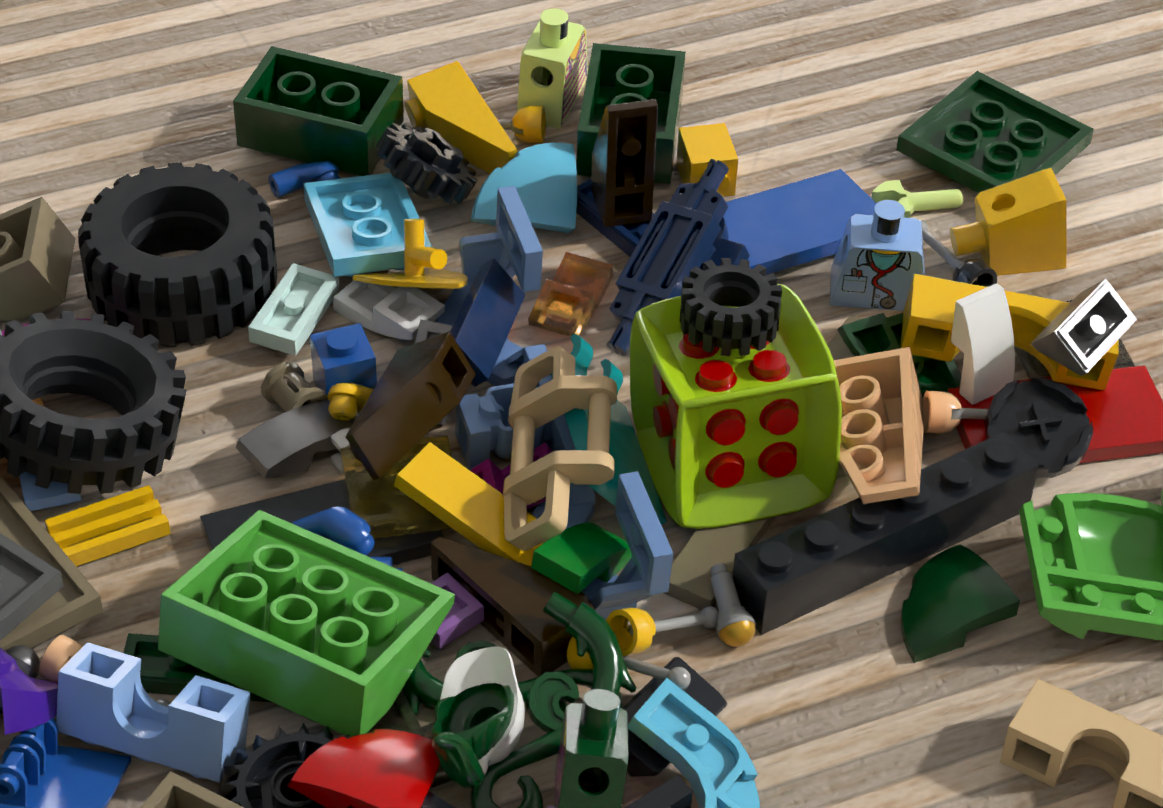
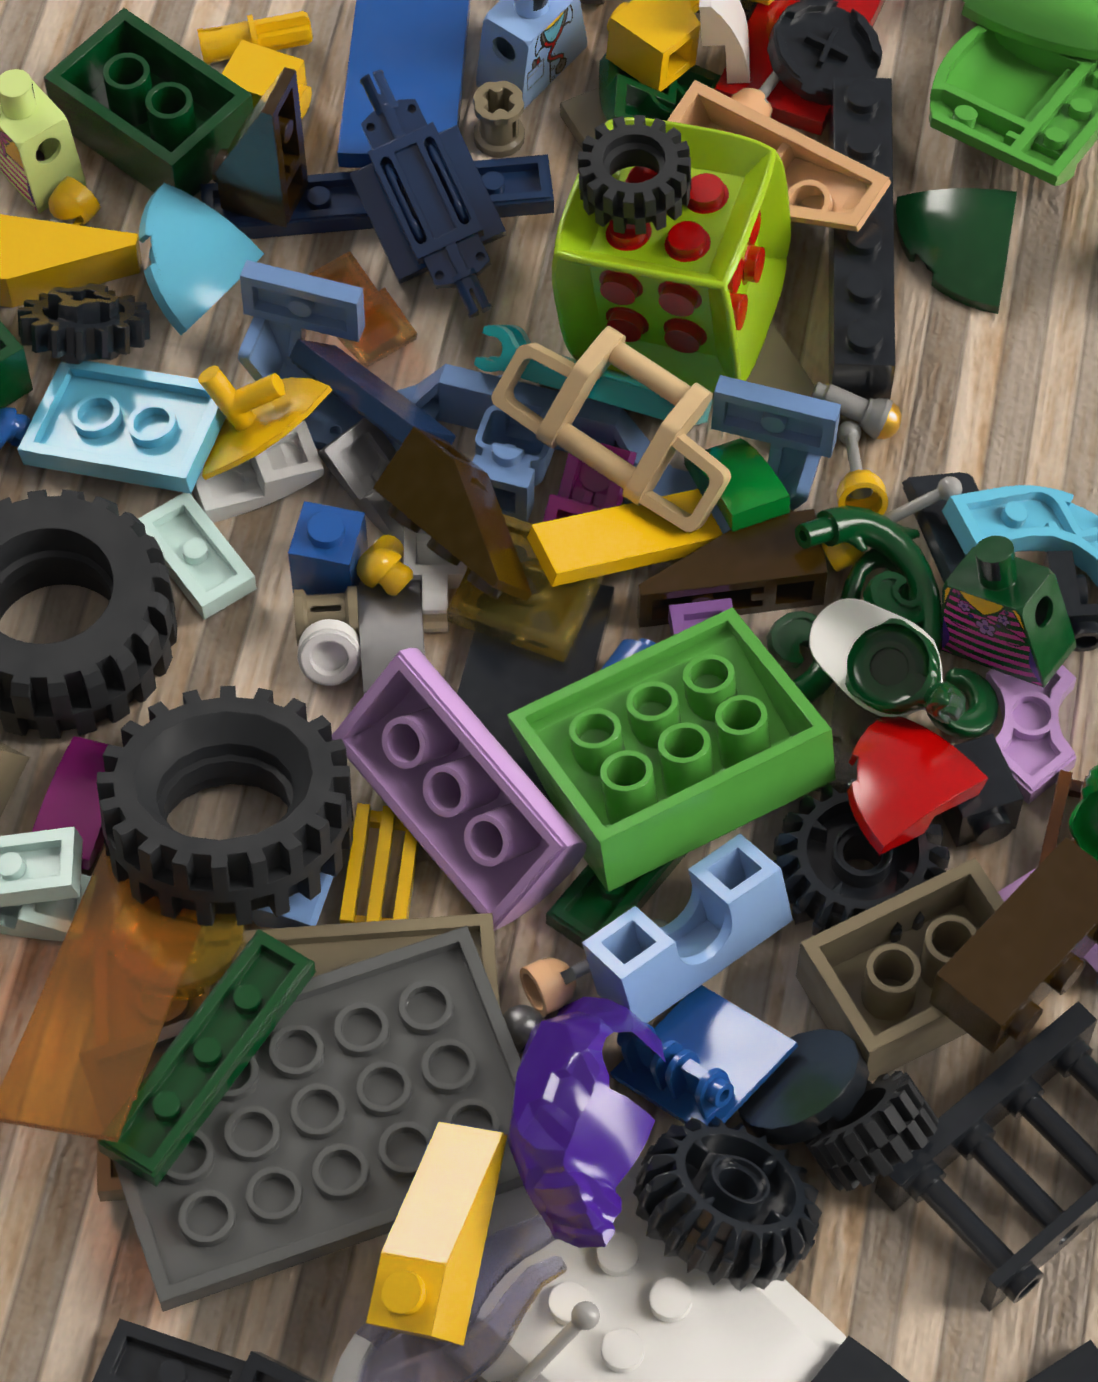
camera: 55 degrees left, 15 degrees up
(182, 514) = (458, 790): none -> lavender brick
(260, 403) = (329, 652): none -> white tile
(340, 527) = (560, 661): blue arm -> none
(752, 142) = (270, 32): none -> yellow axle
(807, 285) = (498, 109): none -> dark tan bush

